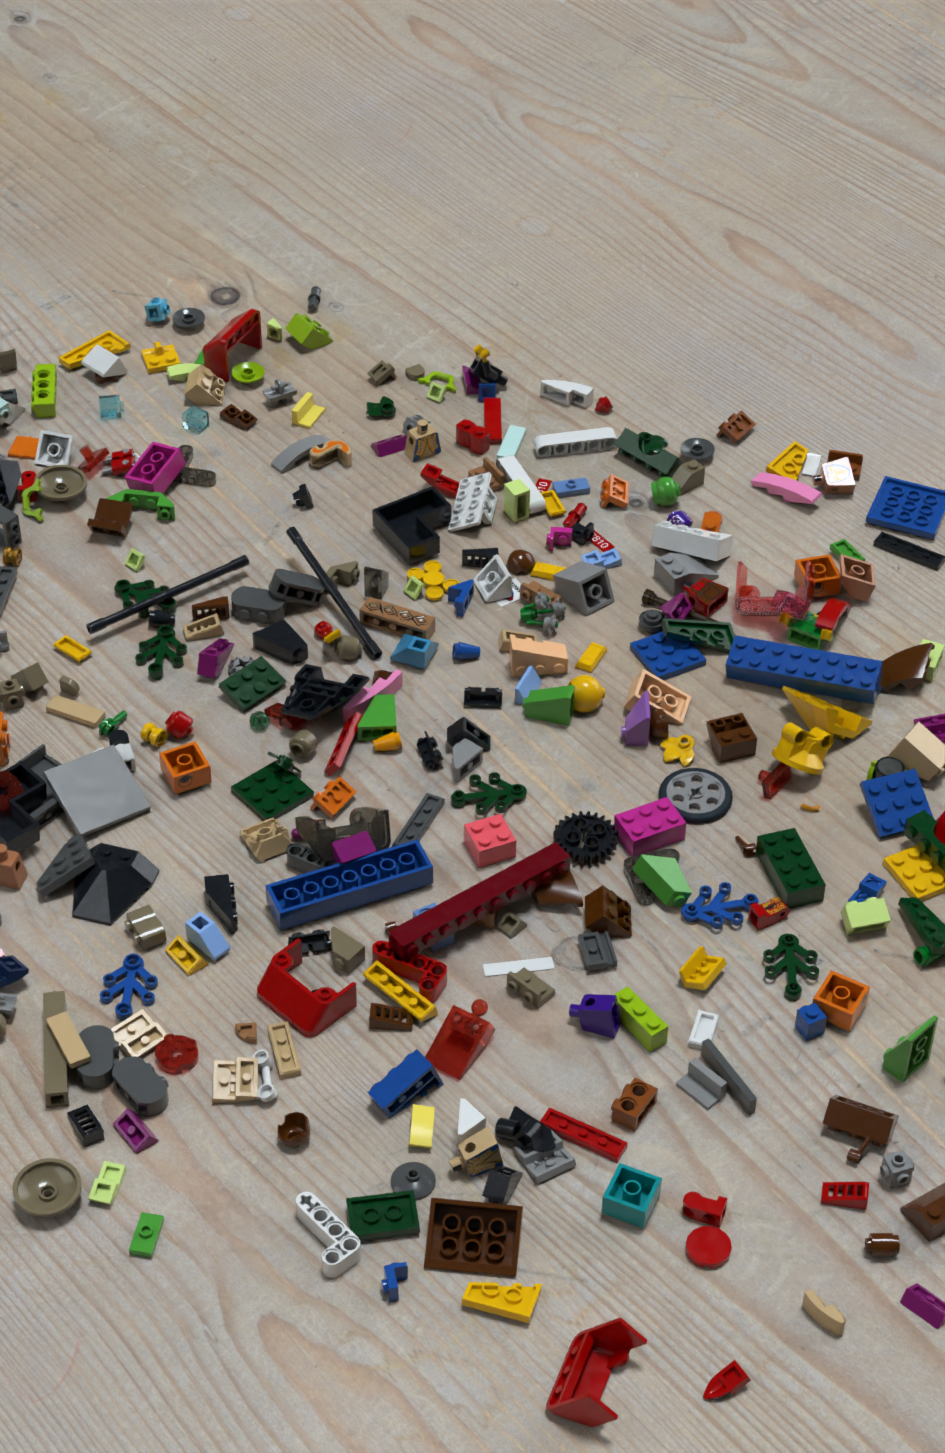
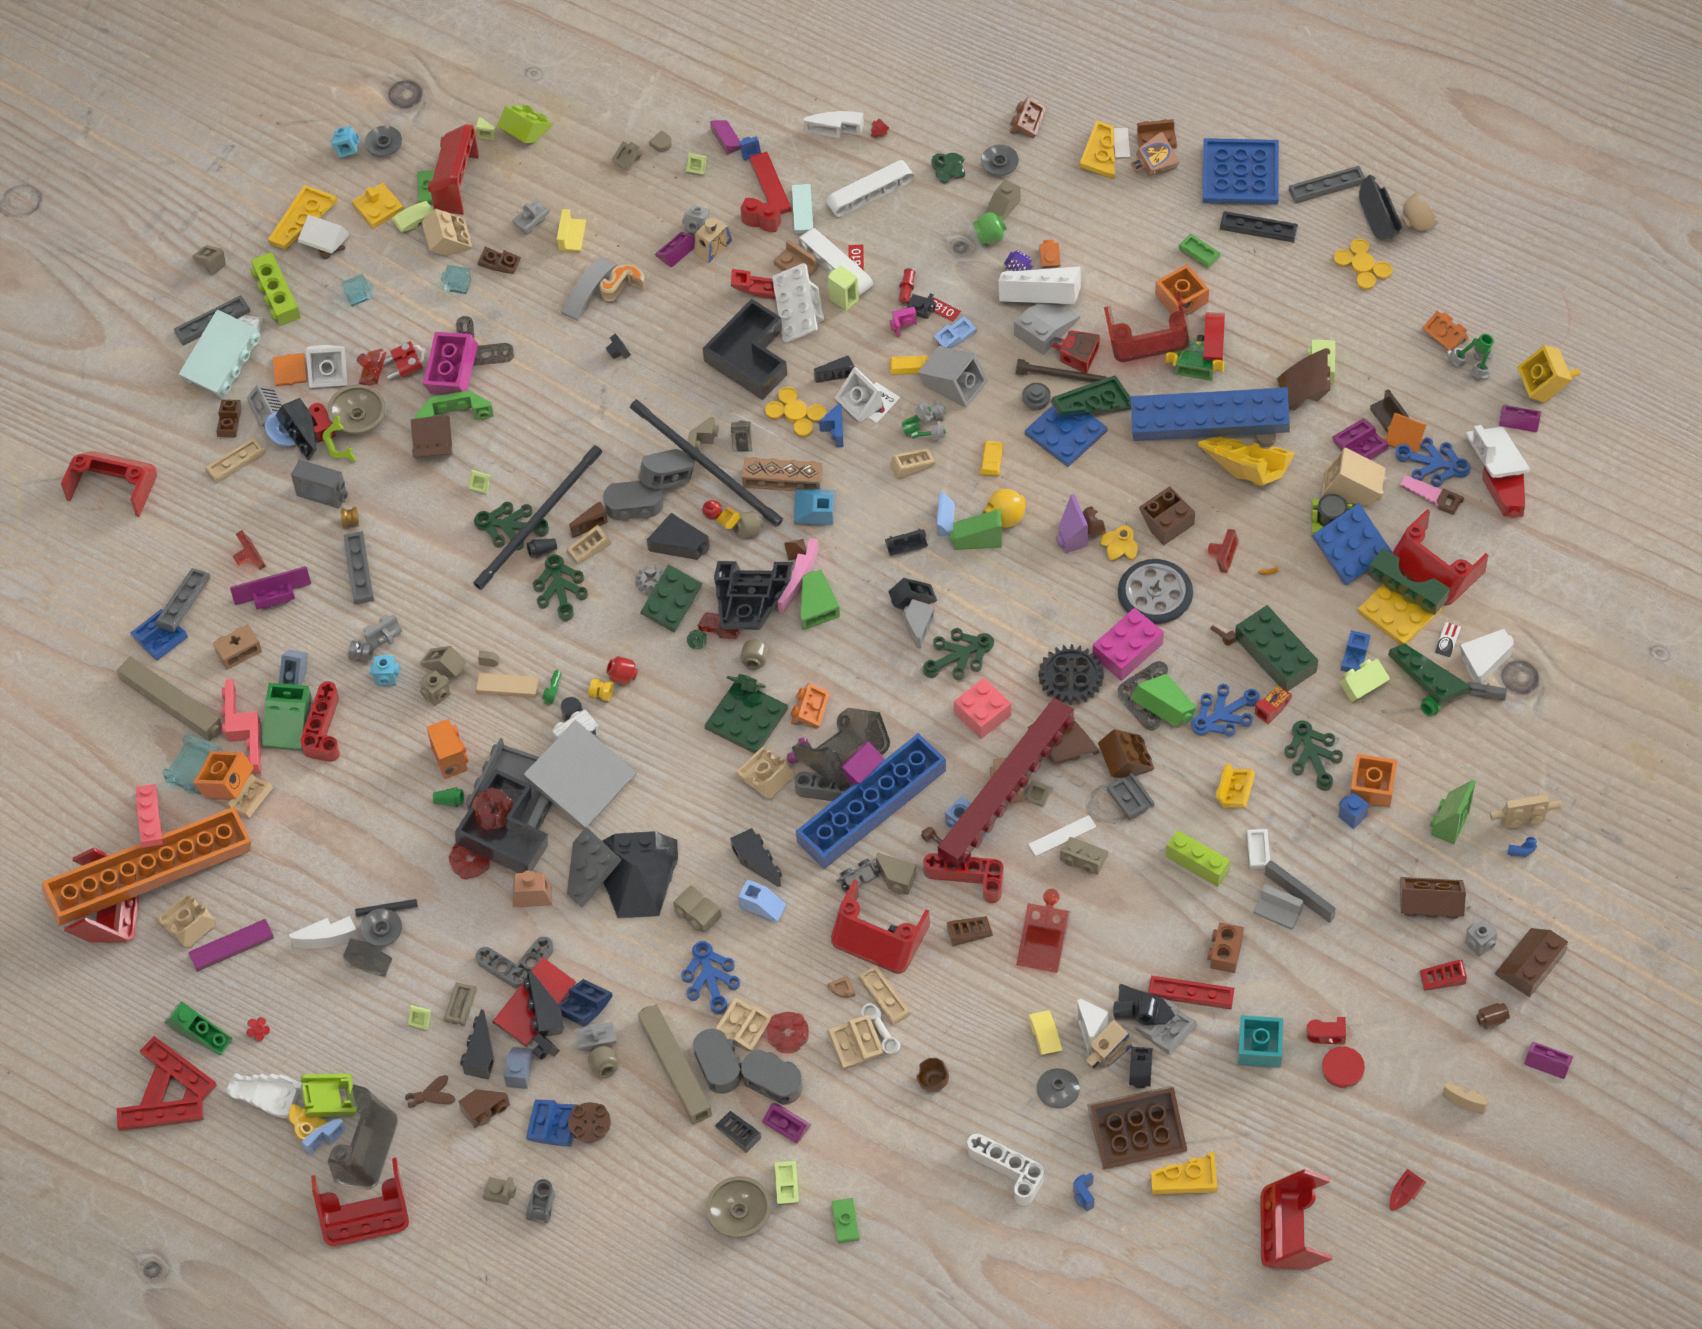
camera: 15 degrees left, 15 degrees up
(68, 1040) = (687, 1054): tan tile -> none
(72, 648) = (467, 611): yellow tile -> none
(185, 767) = (652, 719): orange brick -> none
(185, 955) = (747, 925): yellow slope -> none
(214, 657) = (618, 578): magenta slope -> none
(248, 372) = (483, 192): lime dish -> none
(314, 298) = (507, 71): dark grey axle -> none
(343, 744) = (793, 641): red tile -> none
(383, 1215) = (1048, 1131): dark green plate -> none
(384, 408) = (646, 203): dark green plate -> none
(388, 742) = (836, 624): light orange cone -> none
(400, 992) = (966, 900): yellow slope -> none
(404, 1083) = (1012, 996): blue wedge -> none
(413, 587) = (781, 428): yellowish green slope -> none
(420, 819) = (903, 707): dark grey tile -> none
(429, 754) = (876, 616): black hinge -> none
(436, 374) = (691, 138): lime helmet -> none
(465, 651) = (865, 491): blue cone -> none
(482, 368) = (737, 121): black torso -> none
(520, 561) = (875, 362): reddish brown hair -> none
(529, 591) = (909, 397): medium nougat bracket -> none
(544, 656) = (946, 478): light nougat wedge -> none
(553, 504) = (880, 278): yellow tile -> none
(571, 487) = (887, 248): medium blue plate -> none
(598, 1014) = (1159, 866): dark purple torso -> none
(614, 491) = (935, 242): orange bracket -> none
(632, 444) = (974, 190): dark green arch -> none
(661, 696) = (1088, 488): light nougat slope -> none
(676, 607) = (1057, 376): magenta slope -> none
(790, 489) = (1108, 183): bright pink slope -> none
(790, 604) = (1171, 342): clear pink slope -> none
(803, 748) = (1244, 513): yellow piece -> none
(854, 1155) = (1439, 934): reddish brown hand -> none
(857, 577) = (1223, 282): nougat slope -> none

